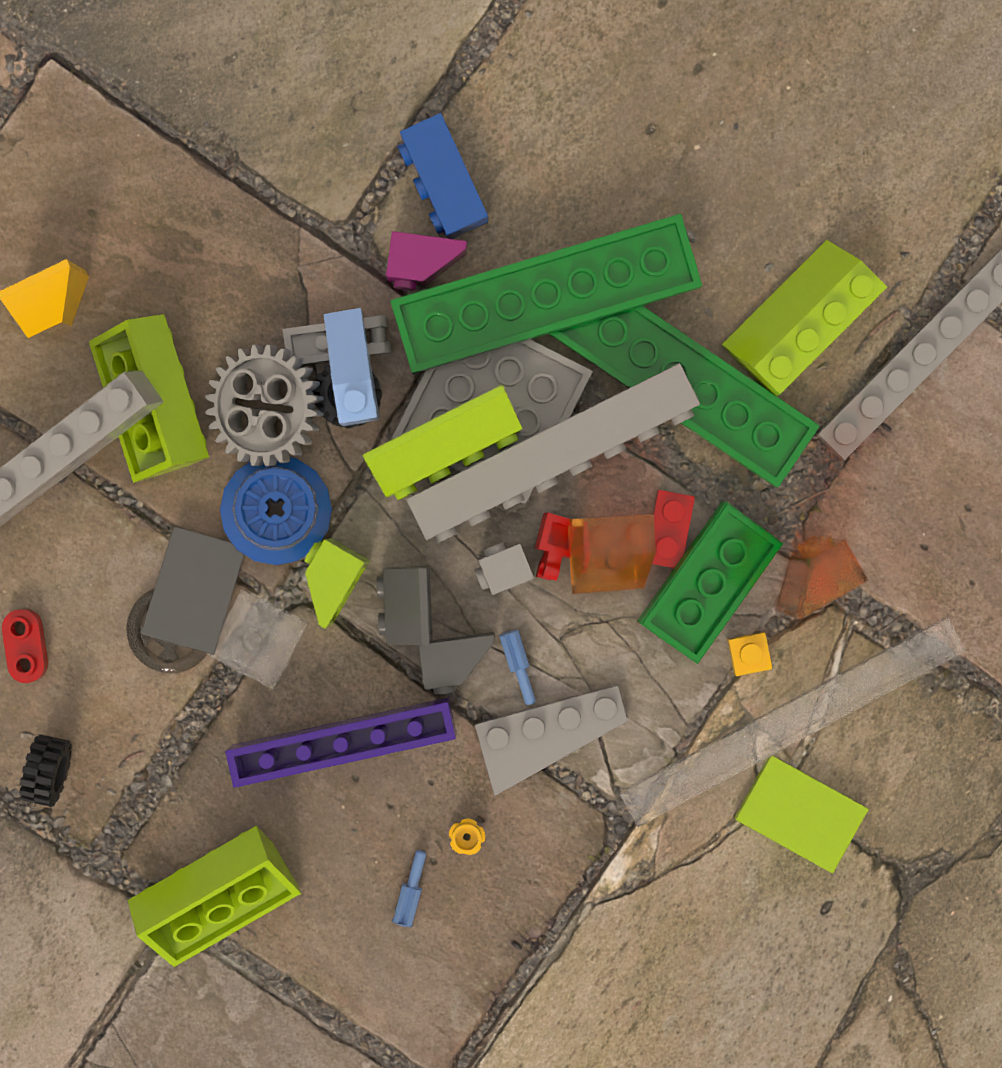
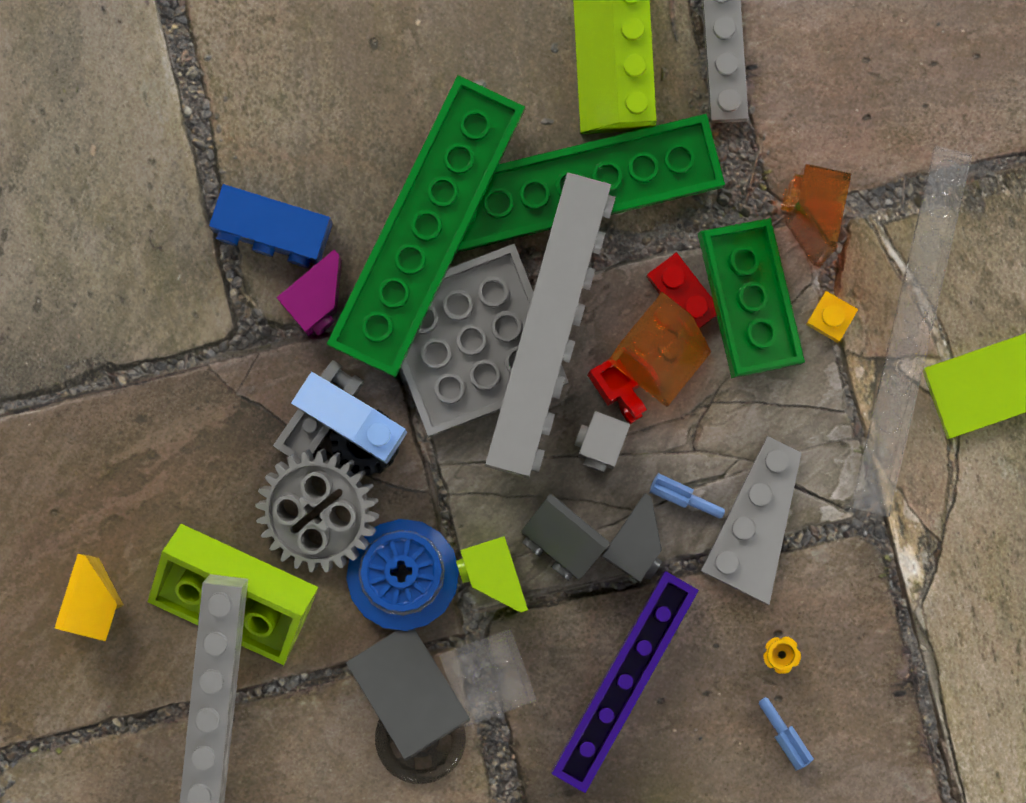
camera: 40 degrees left, 5 degrees down
(443, 443) = (468, 398): lime slope -> none

